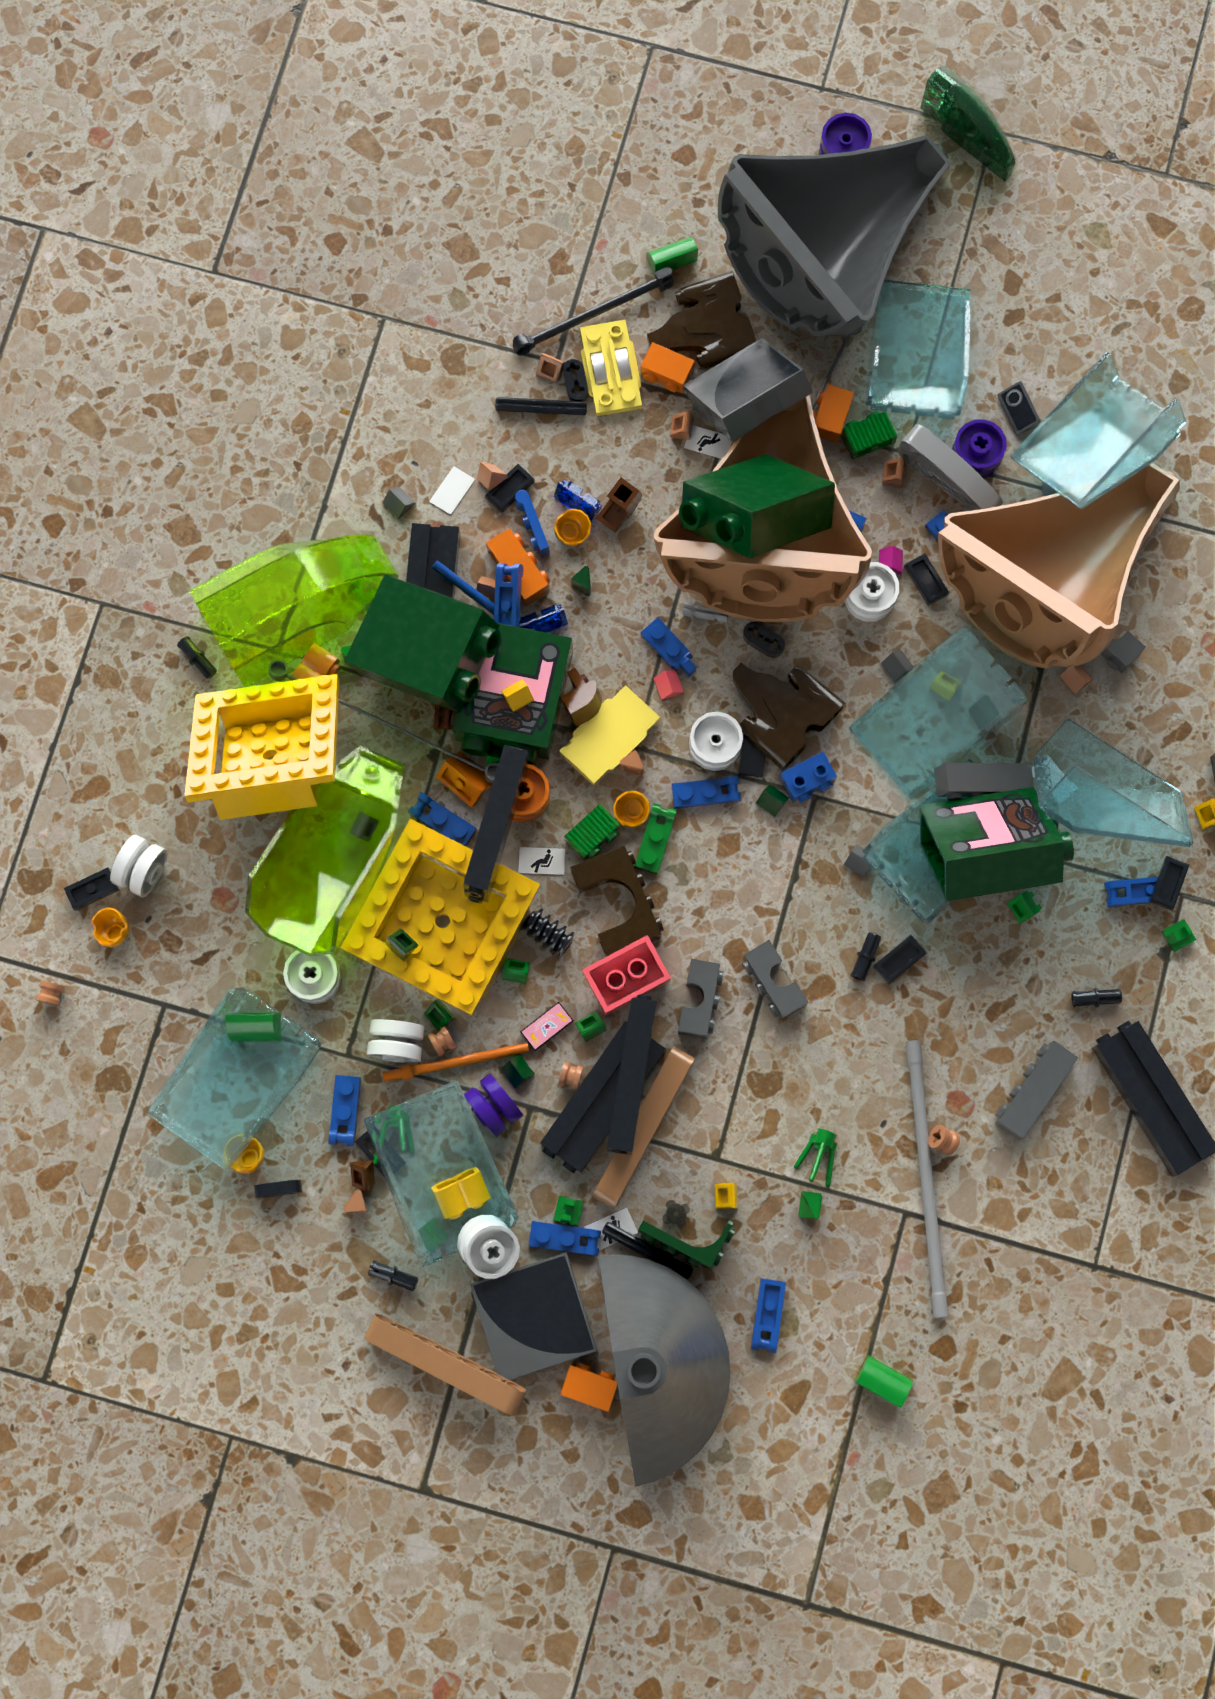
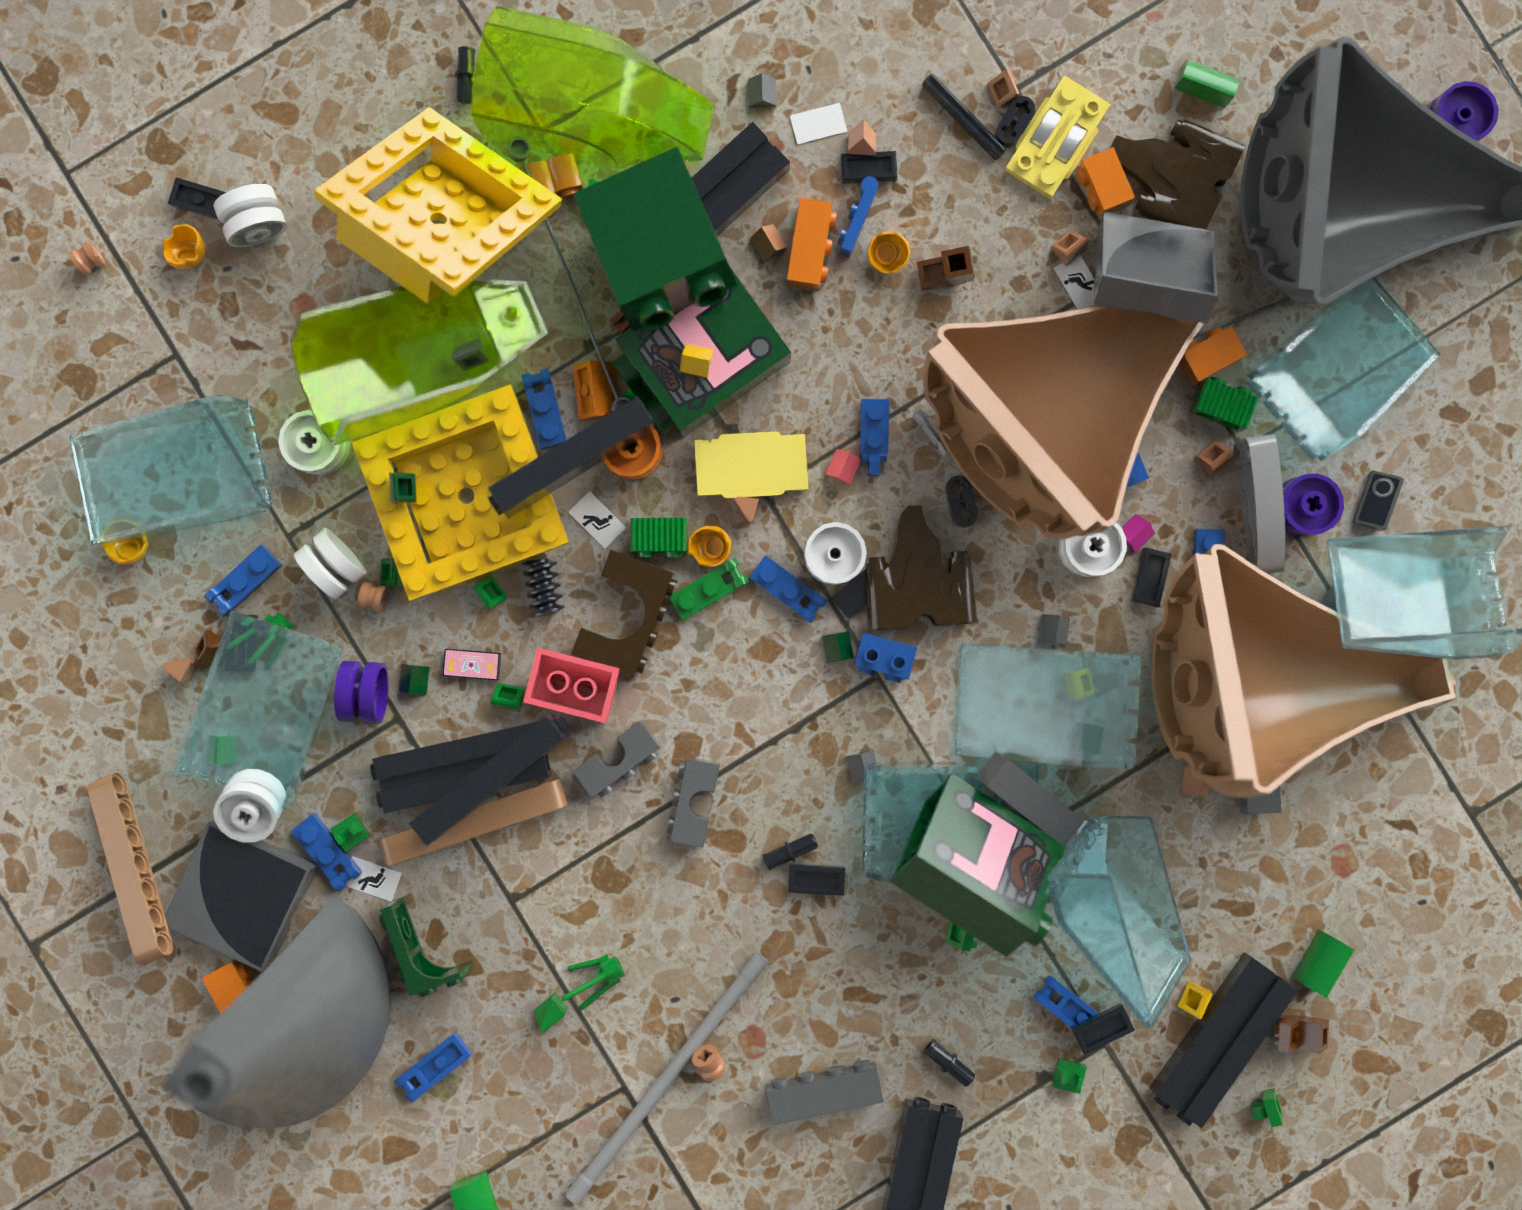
camera: 40 degrees right, 10 degrees up
(253, 1026) = (225, 441): green brick -> none
(278, 1188) = (129, 596): black beam -> none
(393, 1276) = (158, 753): black axle -> none
(408, 1071) = (371, 625): orange bar -> none
(460, 1193) = (268, 740): yellow brick -> none
(463, 586) = (747, 230): blue bar -> none
(508, 594) = (774, 263): blue plate -> none
(551, 619) = (796, 318): clear blue hinge -> none
(569, 495) = (913, 219): clear blue hinge -> none
(570, 1075) = (452, 724): nougat wheel -> none
(581, 581) = (854, 308): dark green slope -> none
(584, 701) = (754, 416): reddish brown brick -> none
(646, 1249) = (376, 902): black axle -> none
(663, 280) = (1177, 99): black hinge -> none
(677, 1220) = (432, 924): clear smoke plate -> none
(726, 1196) = (489, 940): yellow slope -> none
(757, 505) = (1057, 383): dark green brick -> none

